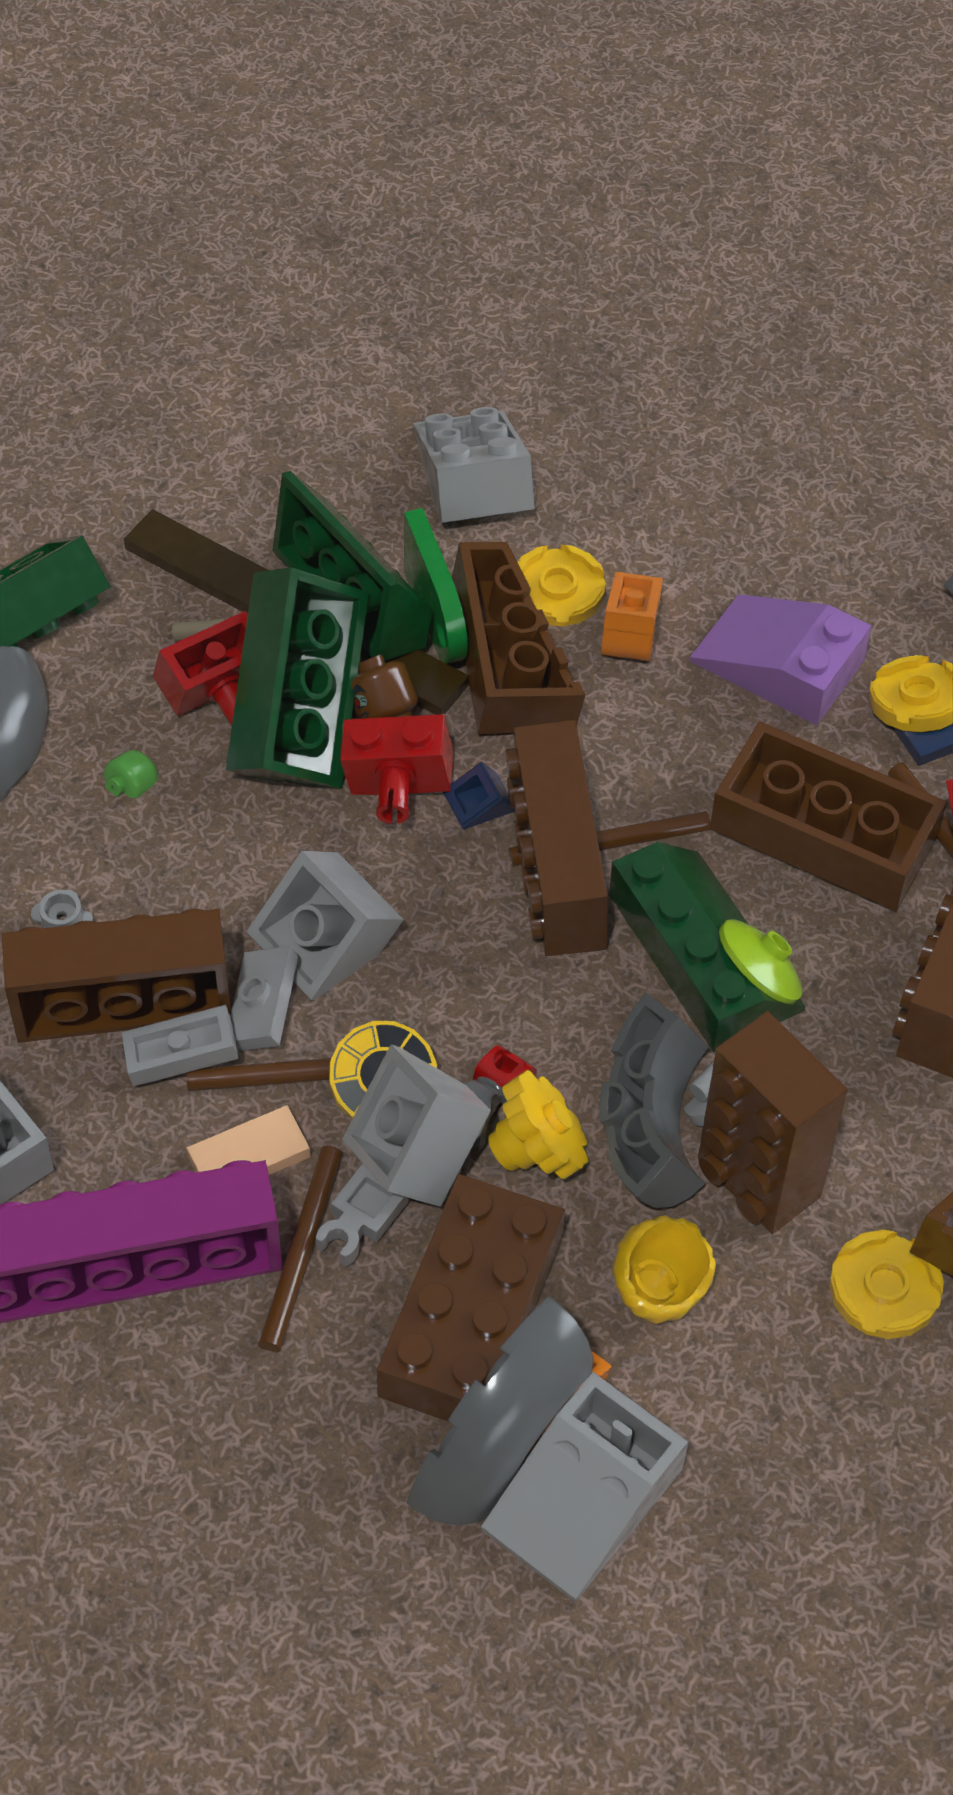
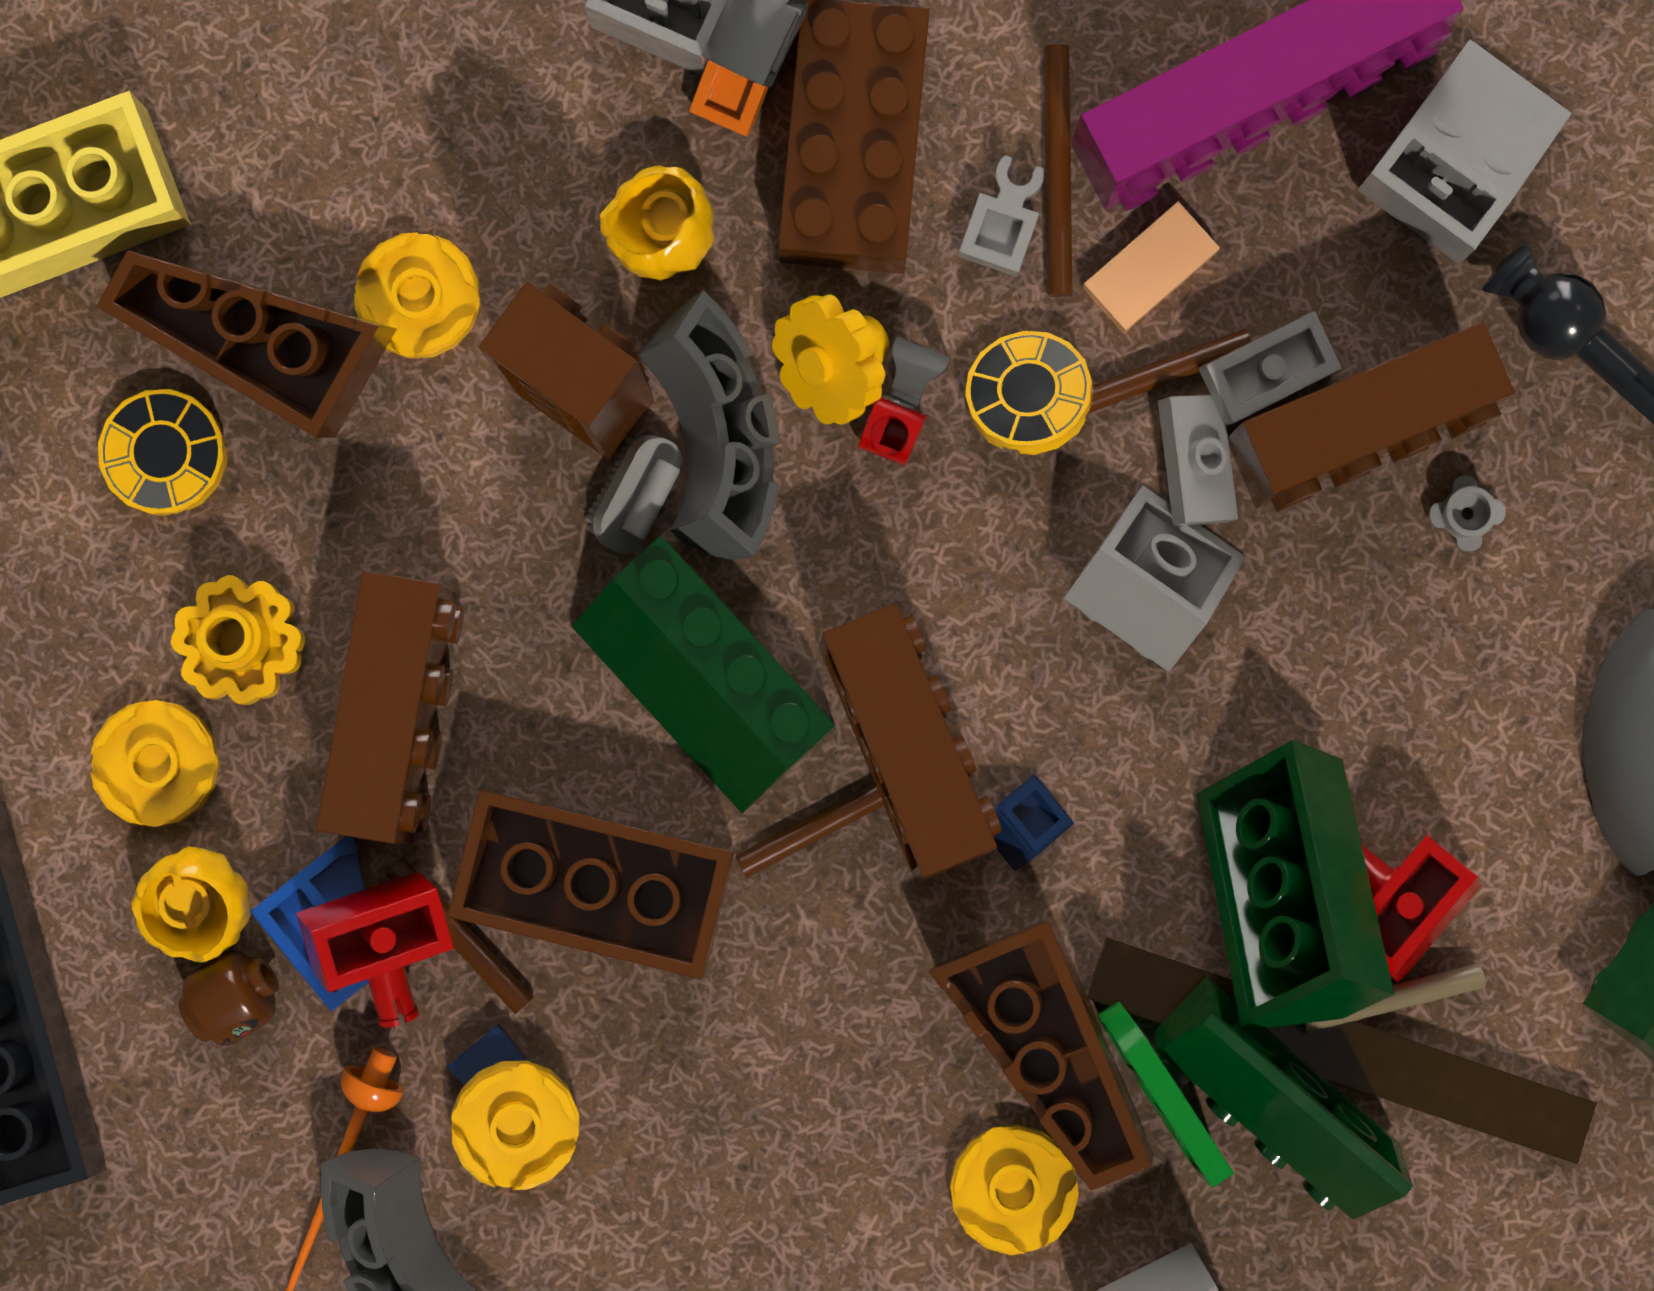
camera: 170 degrees right, 30 degrees up
(130, 774) = (1459, 744): bright green piece -> none
(383, 689) = (1183, 926): reddish brown head -> none
(397, 759) = (1137, 824): red brick -> none
(415, 1127) = (971, 310): light grey slope -> none
(631, 616) = (905, 1155): orange plate -> none
(762, 959) = (632, 651): lime dish -> none
(786, 652) = (703, 1147): medium lavender slope -> none

